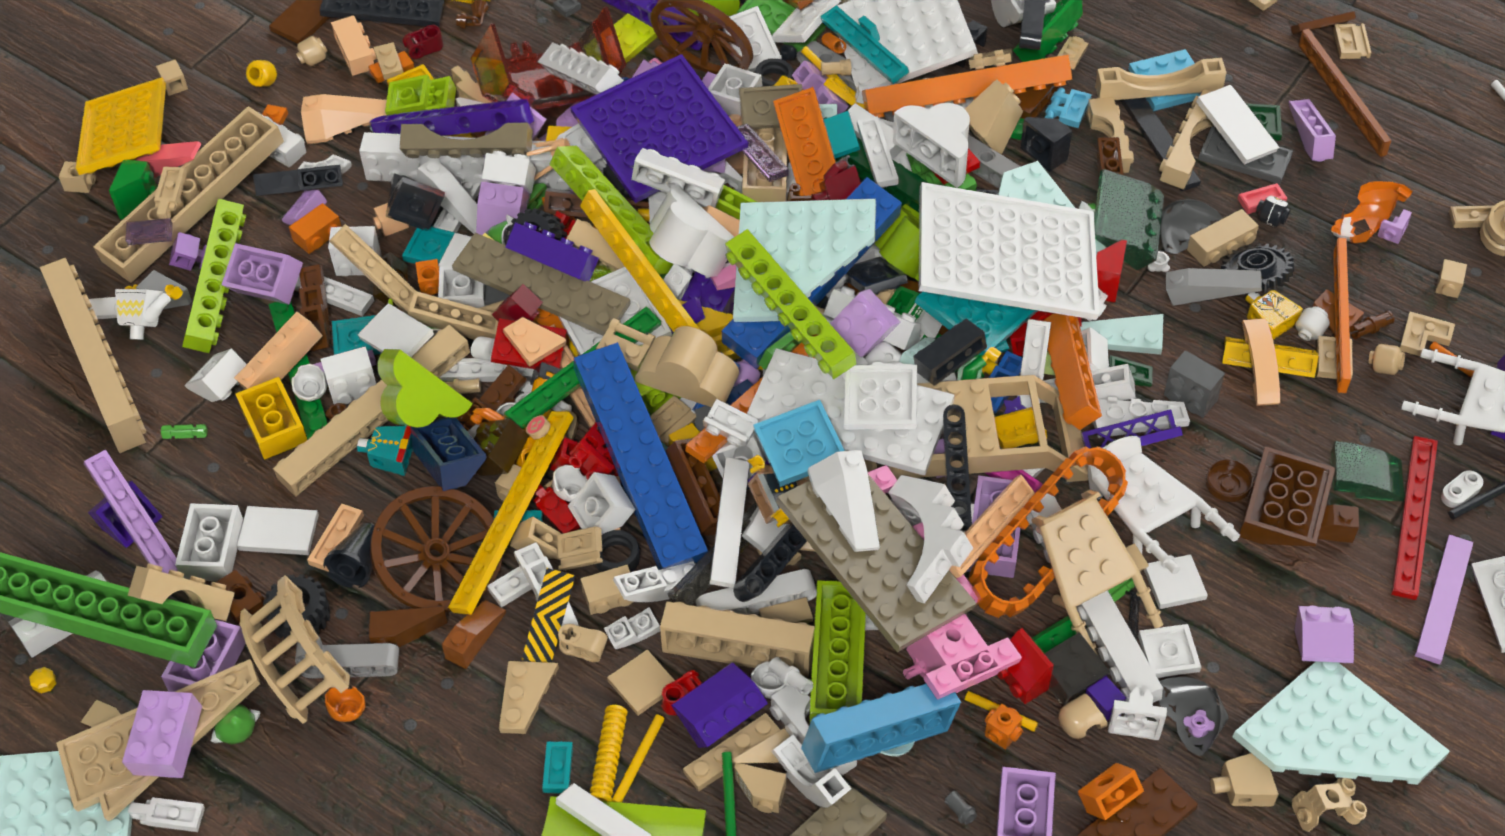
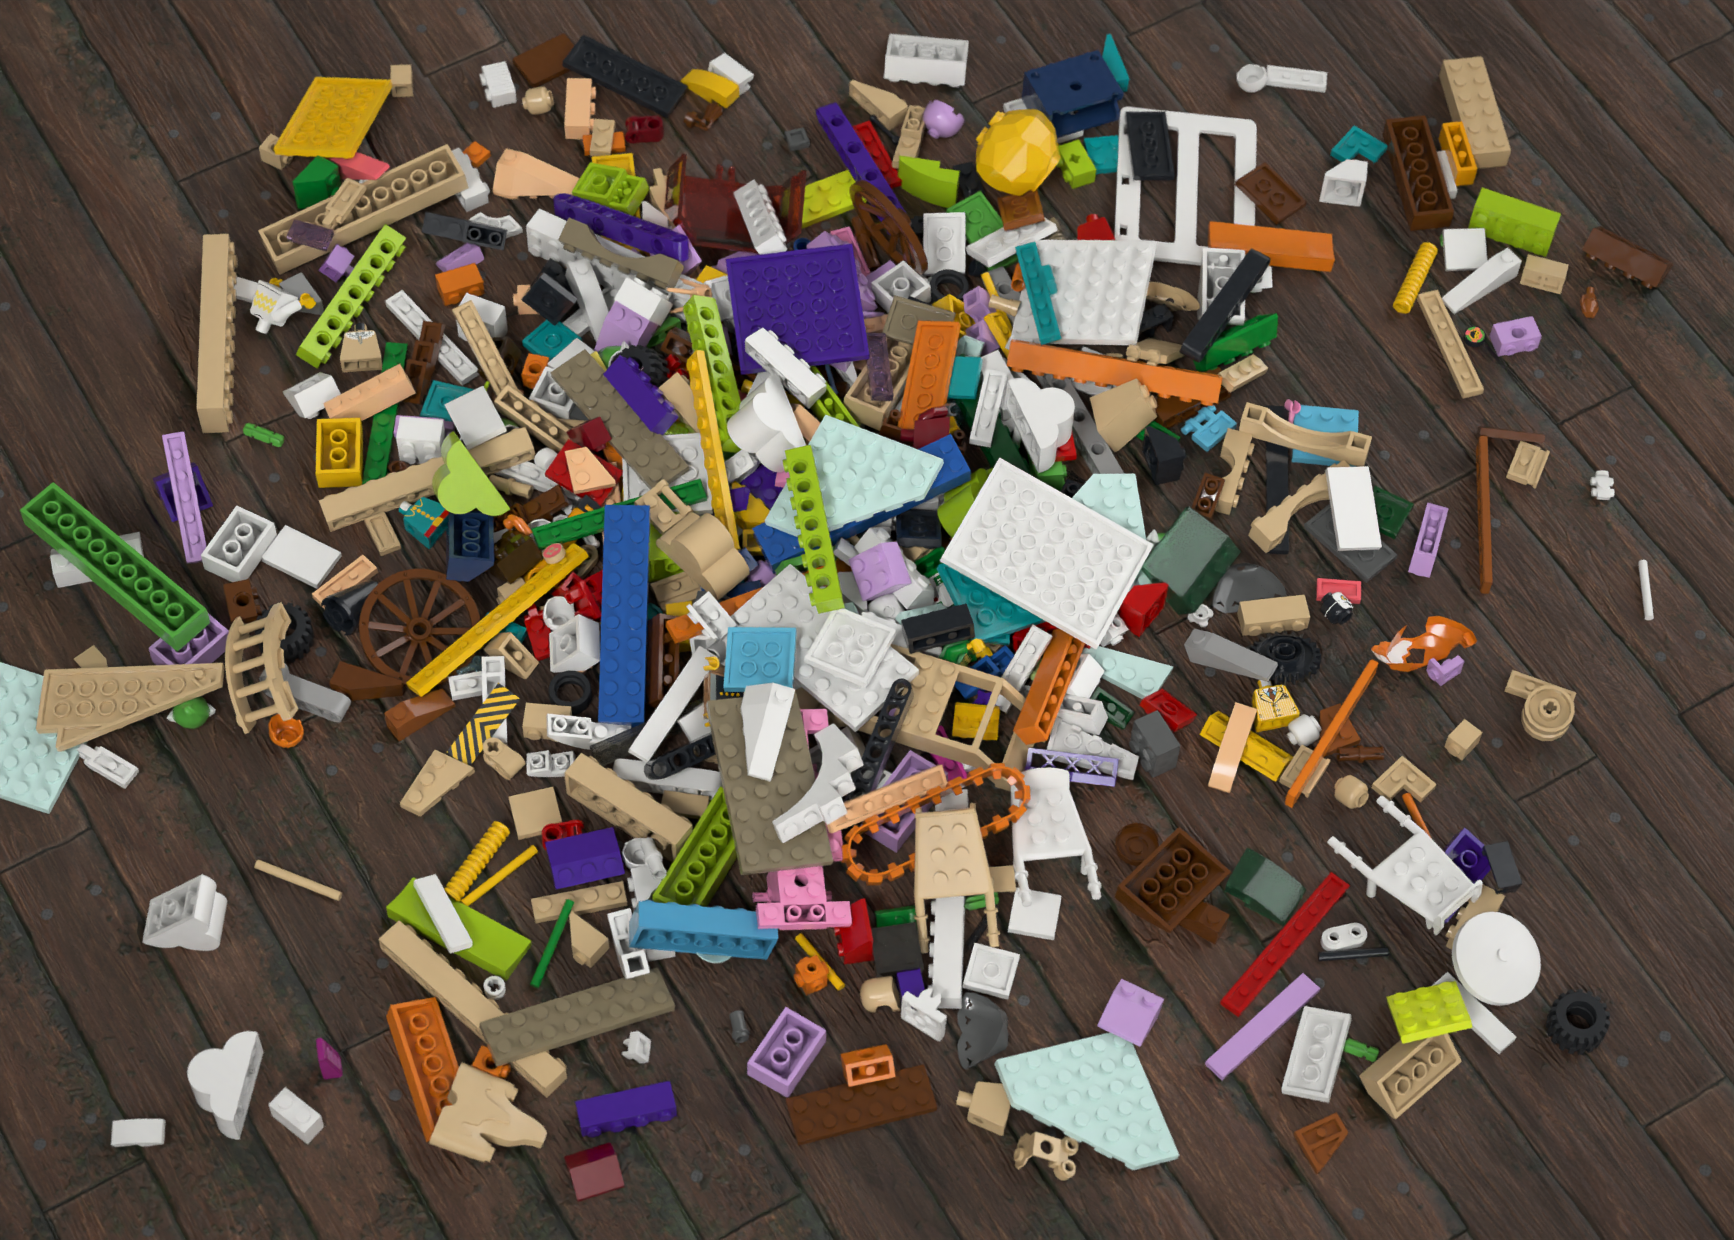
camera: 20 degrees right, 5 degrees up
(42, 680) = (58, 611): yellow tile -> none
(157, 586) = (169, 571): tan arch -> none
(162, 734) = (126, 697): lavender brick -> none
(247, 319) = (360, 350): none -> tan torso
(261, 73) = (481, 107): yellow head -> none
(262, 273) = (389, 313): lavender brick -> none
(266, 47) = (498, 84): none -> white brick
(309, 383) = (383, 433): white hair -> none
(350, 478) = (382, 533): none -> tan tile
(506, 566) = (473, 666): none -> clear light blue hand
(557, 767) = (430, 854): teal plate -> none
(580, 548) = (539, 675): tan plate -> none
(762, 752) = (599, 912): tan sticker -> none
(982, 14) = (1180, 297): none -> tan piece
(1130, 64) = (1292, 410): none -> bright pink hand
(1173, 349) = (1172, 710): none -> red plate
(1199, 730) = (977, 1048): lavender plate -> none
(1422, 35) = (1602, 485): none -> white piece

